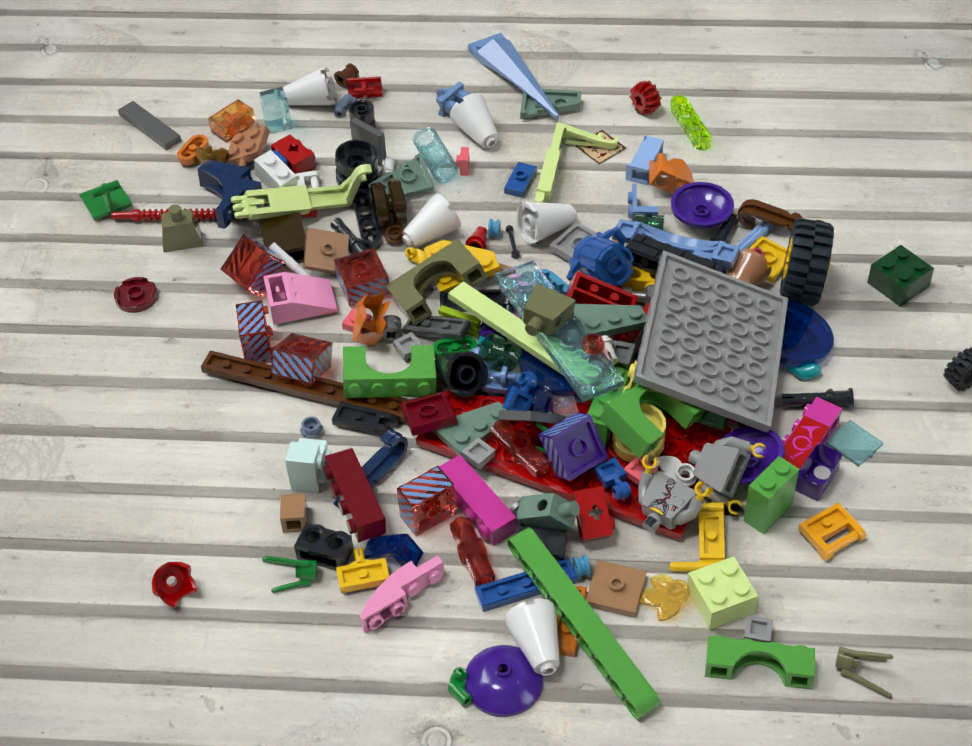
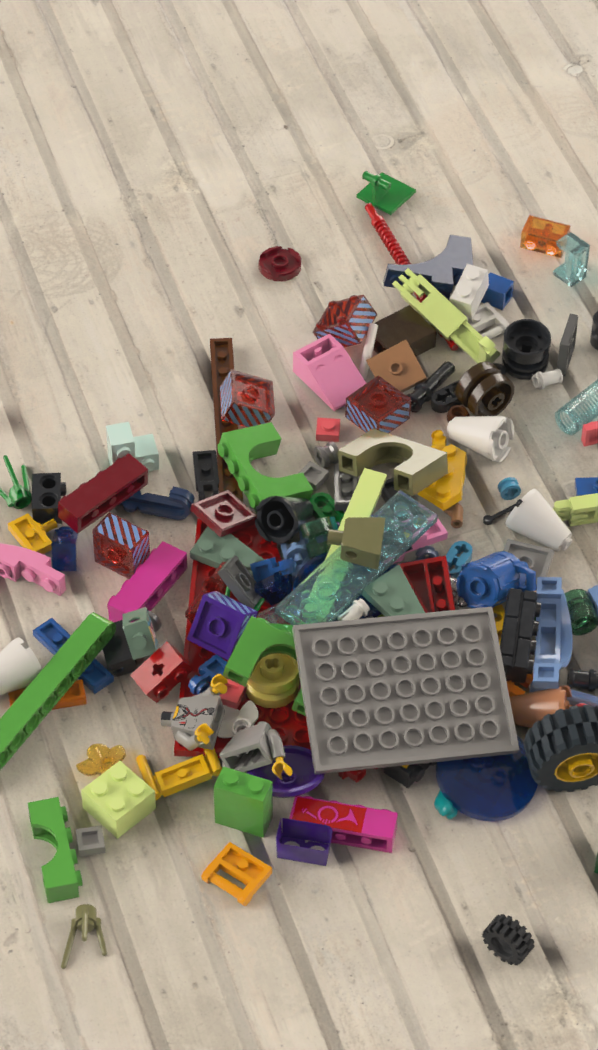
camera: 65 degrees right, 0 degrees up
(149, 125) = (507, 181): dark grey tile -> none
(180, 230) = (367, 257): olive torso -> none
(186, 154) = (488, 225): orange plate -> none
(217, 155) = (483, 239): pearl gold hair -> none
(247, 145) = (513, 260): nougat plate -> none
(254, 331) = (262, 353): container -> none
(293, 512) = (75, 464): medium nougat brick -> none
(297, 155) = (522, 299): red brick -> none
(311, 427) = (180, 442): sand blue plate -> none
(371, 303) = (312, 425): orange piece -> none
(413, 177) = (537, 397): sand green wing -> none
(472, 551) = (87, 601): clear red piece -> none
(478, 238) = (483, 481): red cone -> none
(478, 453) = (194, 565): light grey plate -> none
(581, 566) = (106, 687): dark azure bush -> none
(593, 344) = (341, 587): clear red plate -> none
(616, 588) = (96, 722): medium nougat plate -> none
(839, 398) = (411, 830): black pin -> none
(854, 443) = (368, 871): clear light blue piece -> none

